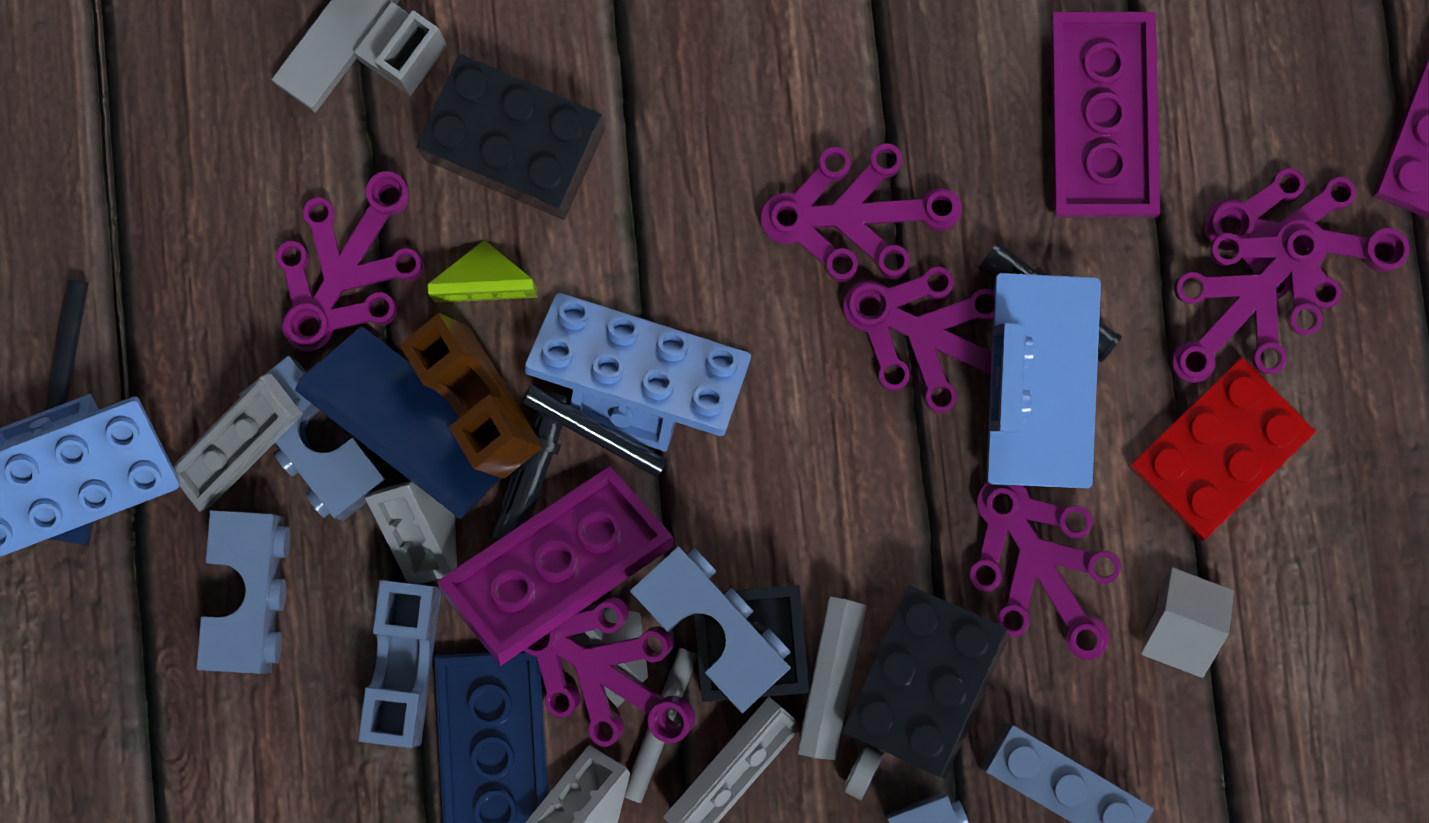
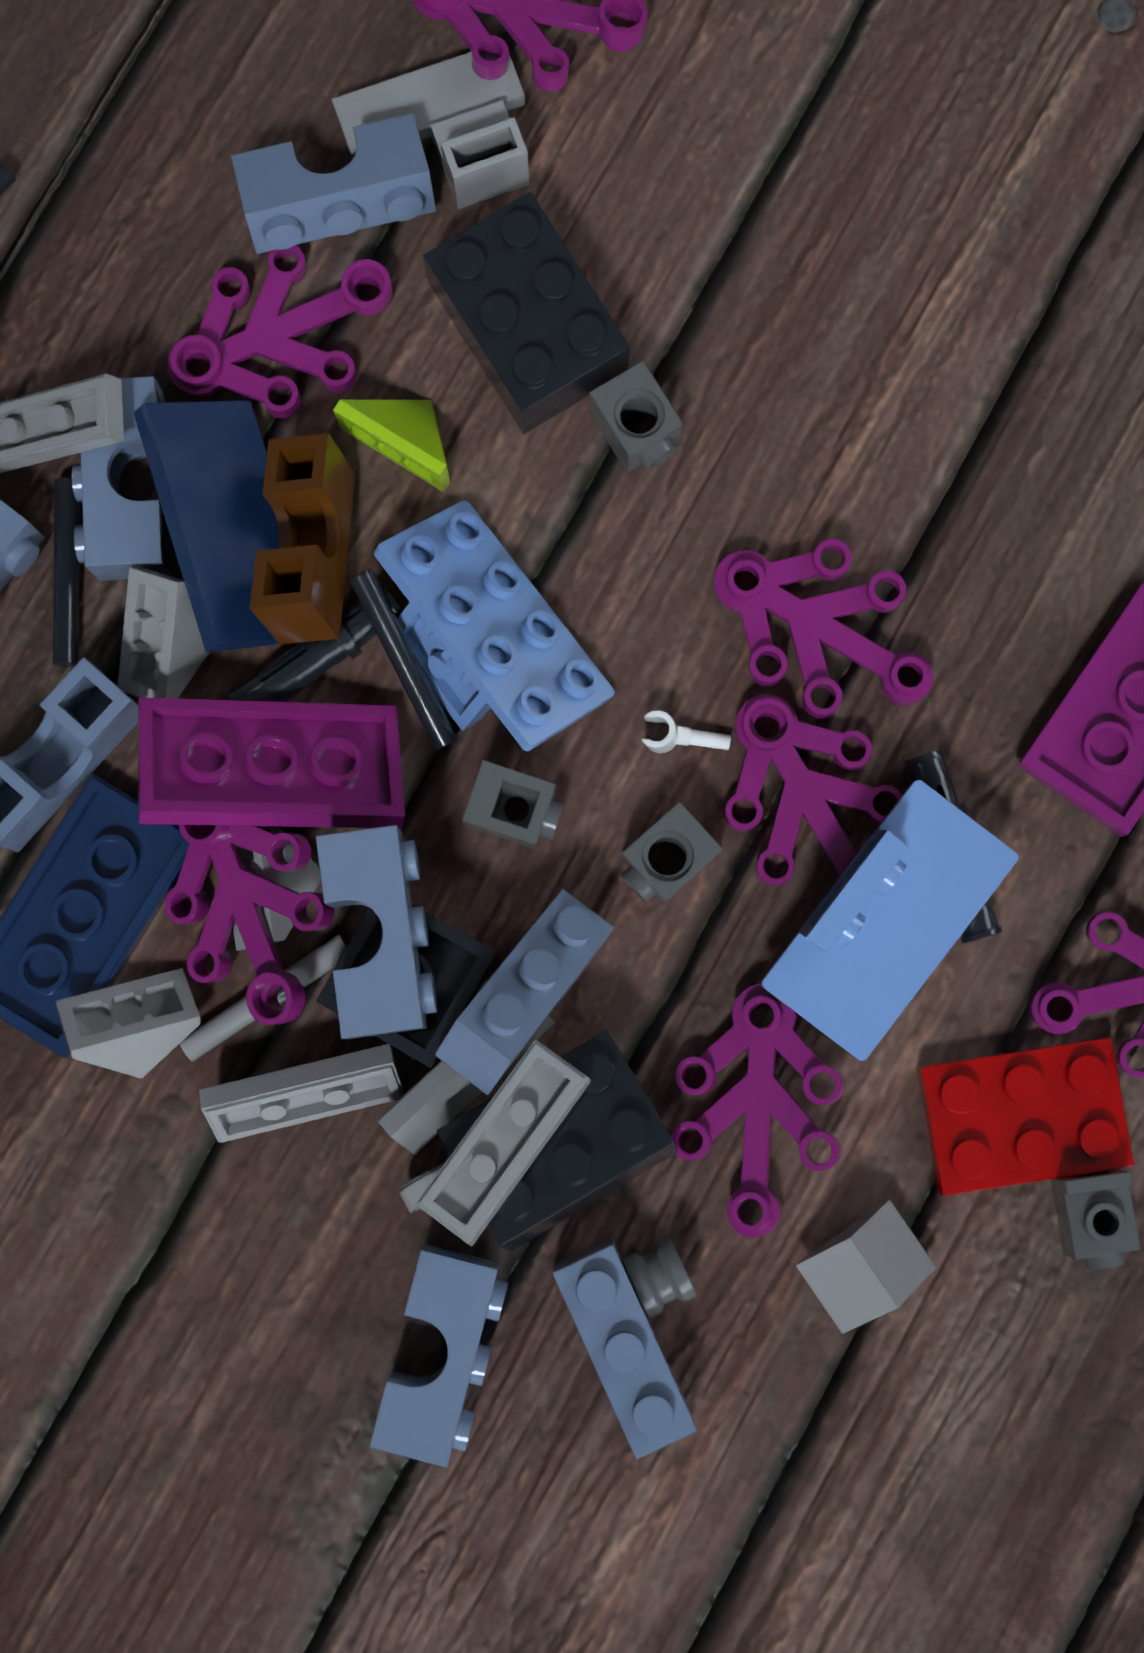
camera: 30 degrees right, 0 degrees up
(298, 172) = (297, 206): none -> sand blue arch
(318, 531) = (65, 575): none -> black bar
(624, 140) = (633, 393): none -> dark grey brick
(717, 475) = (500, 785): none -> dark grey brick
(818, 351) = (683, 735): none -> white hand
(837, 598) = (523, 991): none -> sand blue arch
(868, 416) = (688, 835): none -> dark grey brick
(895, 707) = (503, 1142): none -> light grey tile
(1057, 725) = (659, 1277): none -> dark grey wheel
(1297, 478) = (1077, 1202): none -> dark grey brick

